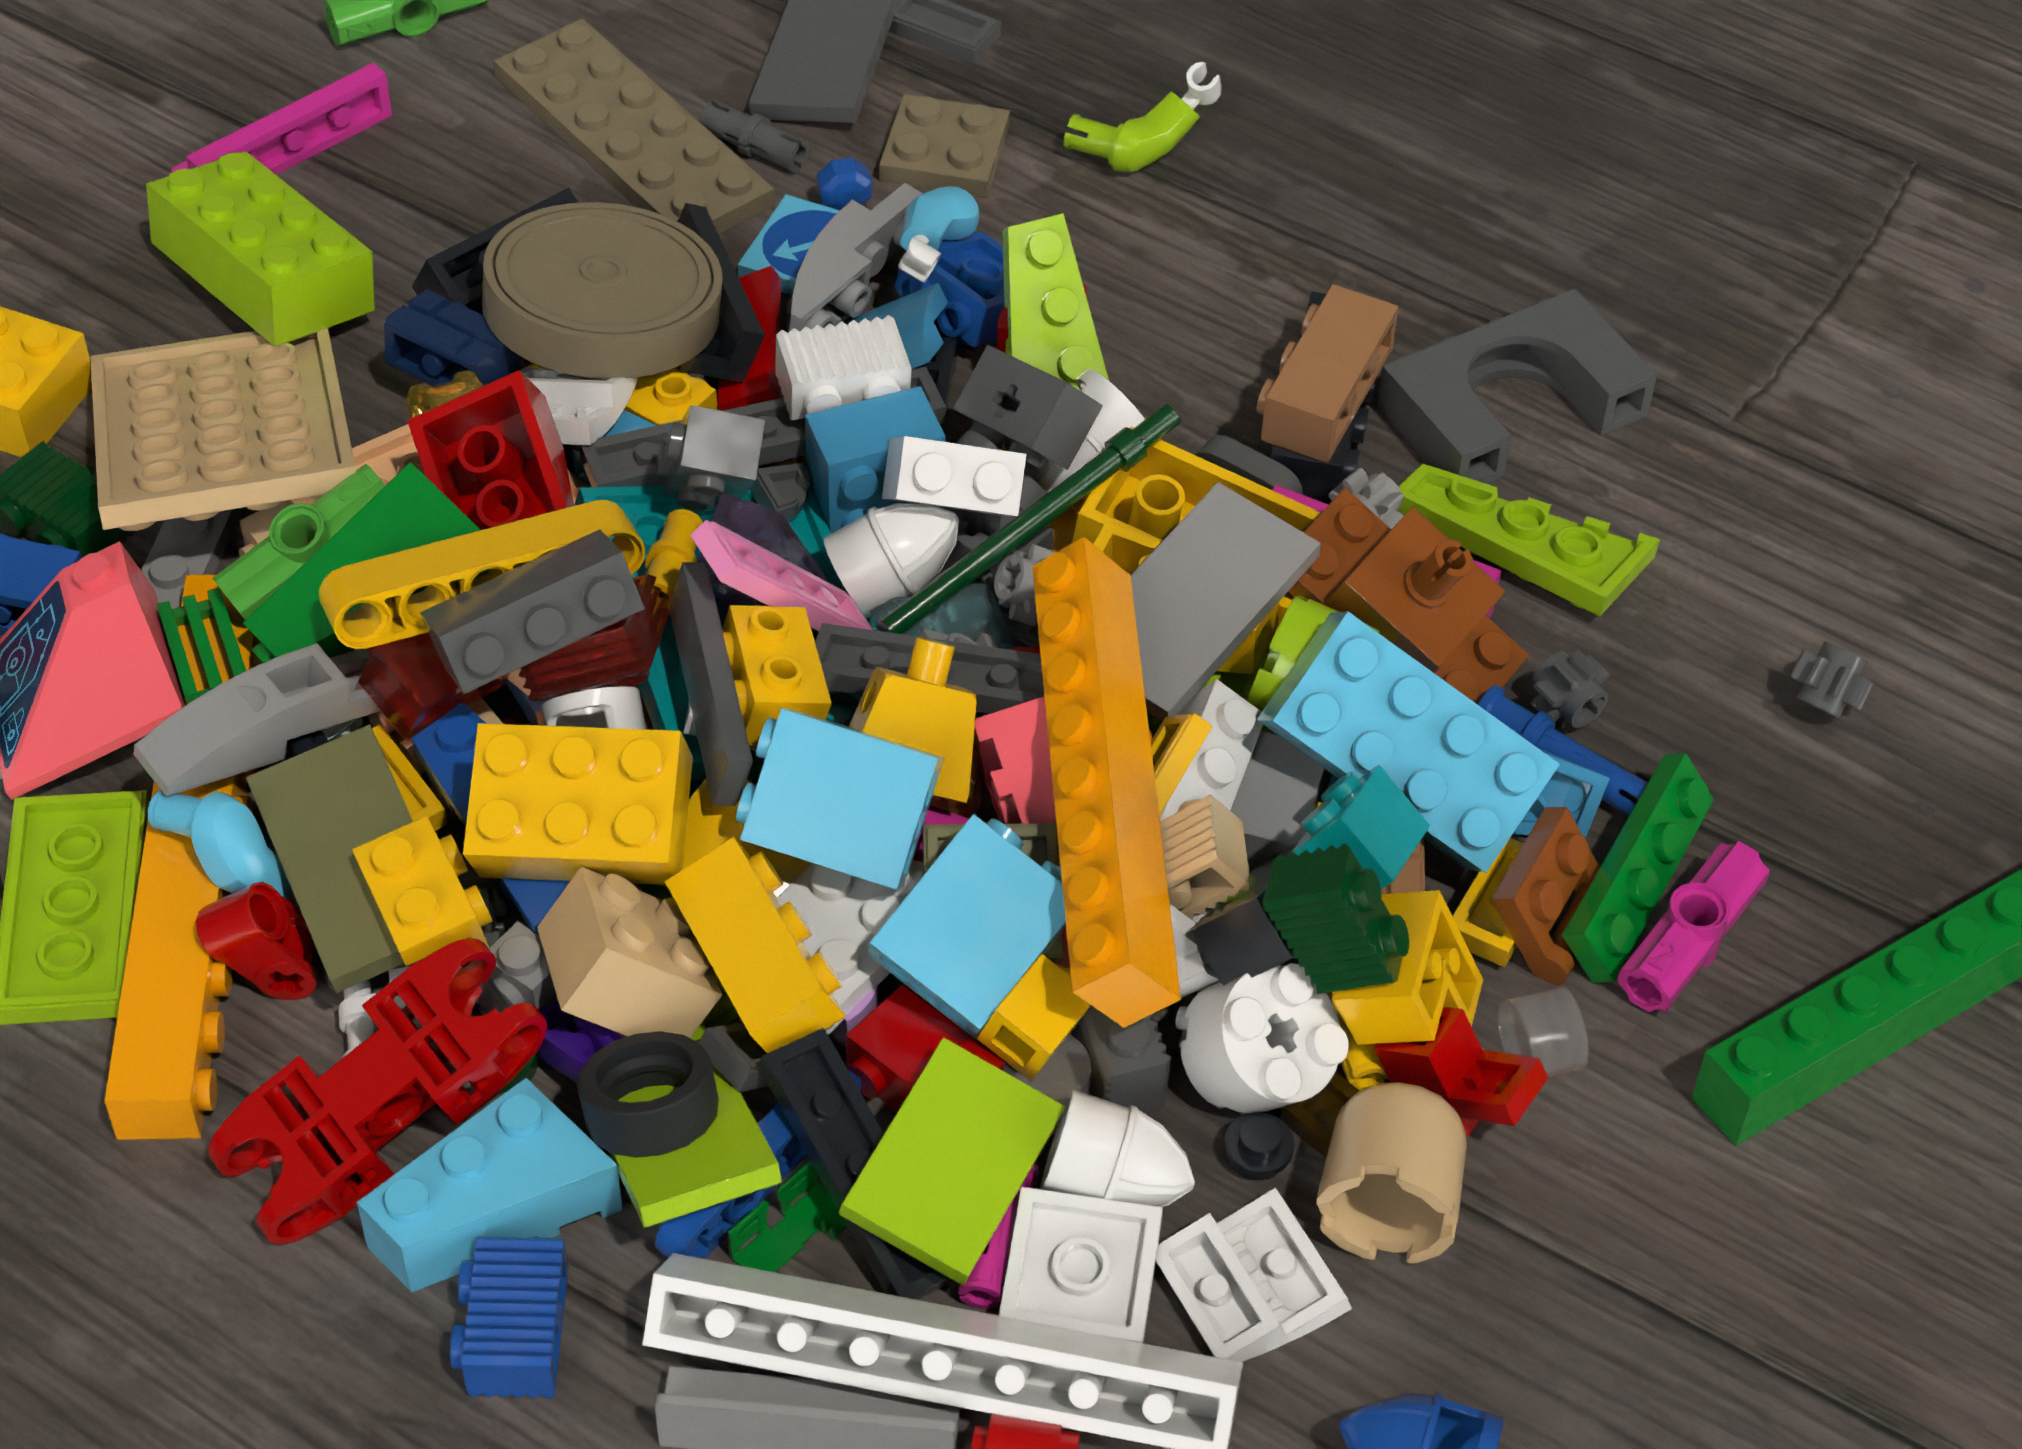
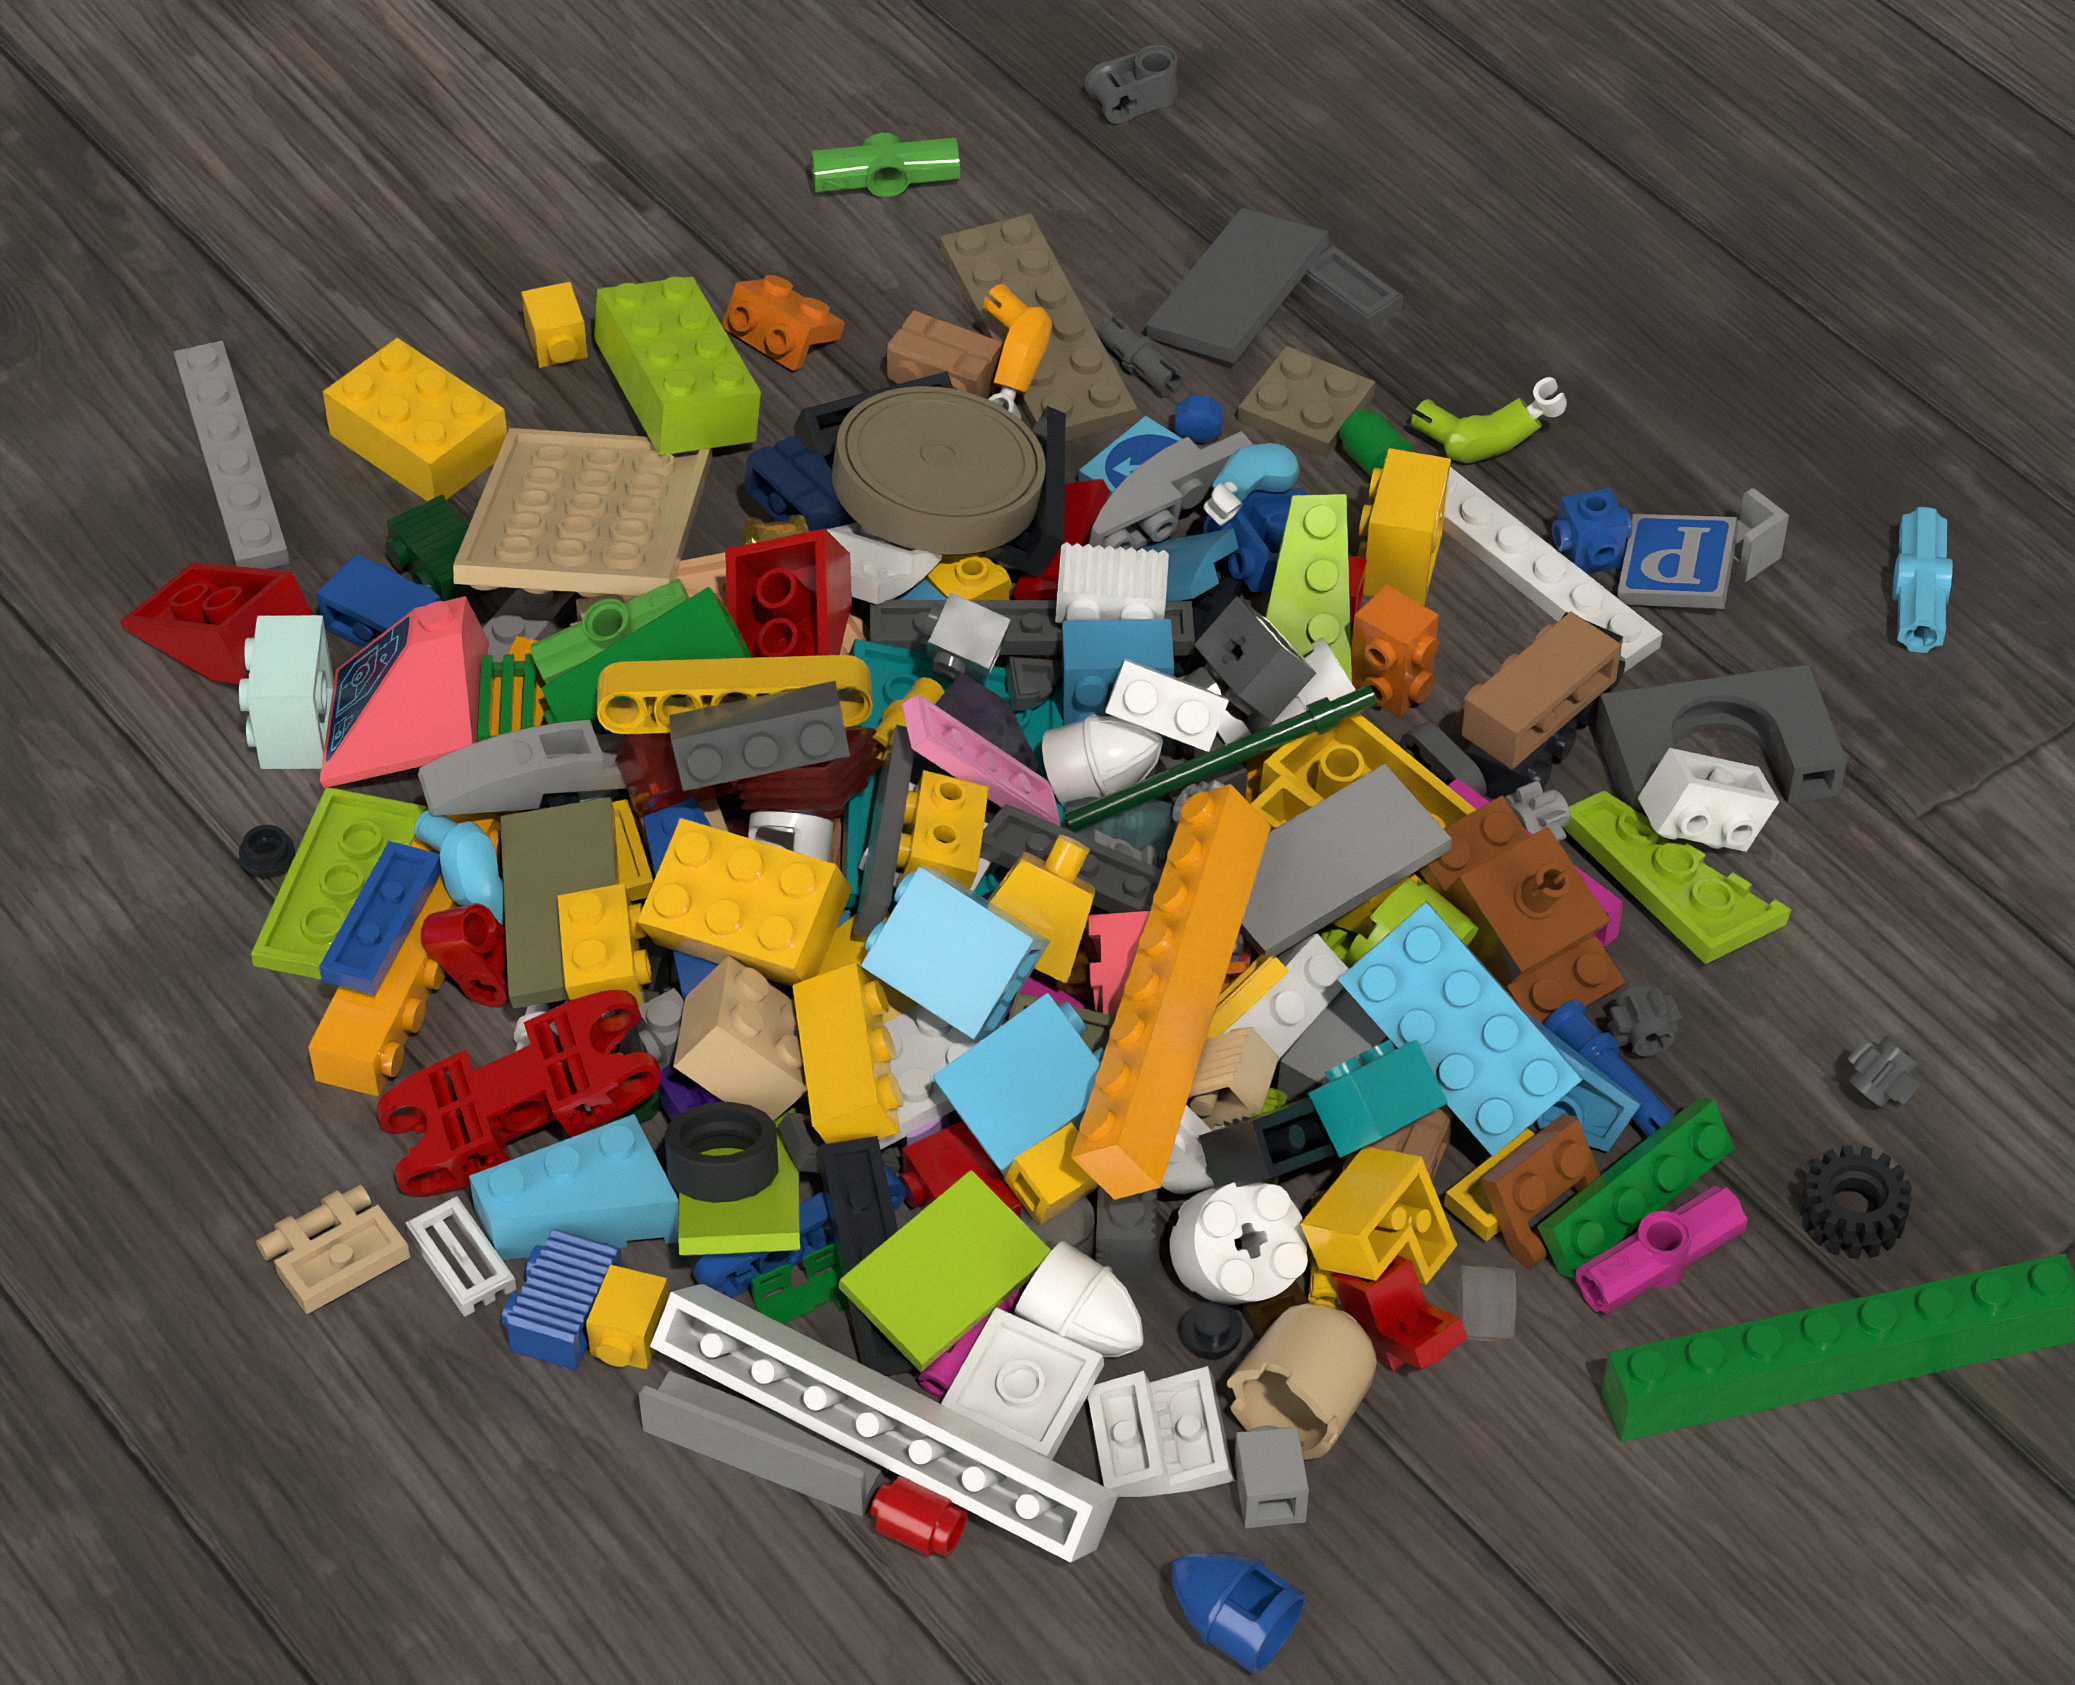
camera: 20 degrees right, 0 degrees up
(102, 236) = (554, 324): none -> yellow brick
(144, 929) = (381, 918): none -> blue plate
(224, 1344) = (338, 1259): none -> tan plate
(307, 124) = (781, 254): dark pink panel -> none
(354, 181) = (780, 320): none -> orange bracket
(408, 1333) = (481, 1289): none -> white tile
(537, 170) = (935, 346): none -> medium nougat brick
(598, 1317) = (626, 1317): none -> yellow brick
(636, 138) = (1024, 345): none -> light orange arm
(1038, 172) = (1368, 438): none -> green brick
(1113, 239) = (1404, 523): none -> yellow brick
(1158, 361) = (1395, 650): none -> orange brick
(1222, 246) = (1540, 569): none -> white plate
(1295, 209) = (1592, 530): none -> blue brick
(1335, 919) = (1312, 1156): dark green brick -> none
(1392, 219) = (1678, 561): none -> tile
(1396, 1292) = (1271, 1476): none -> light grey brick
(1455, 180) = (1759, 536): none -> light grey panel
(1538, 447) = (1707, 800): none -> white brick
(1637, 184) = (1922, 580): none -> medium azure piece
(1858, 850) = (1851, 1228): none -> black tyre

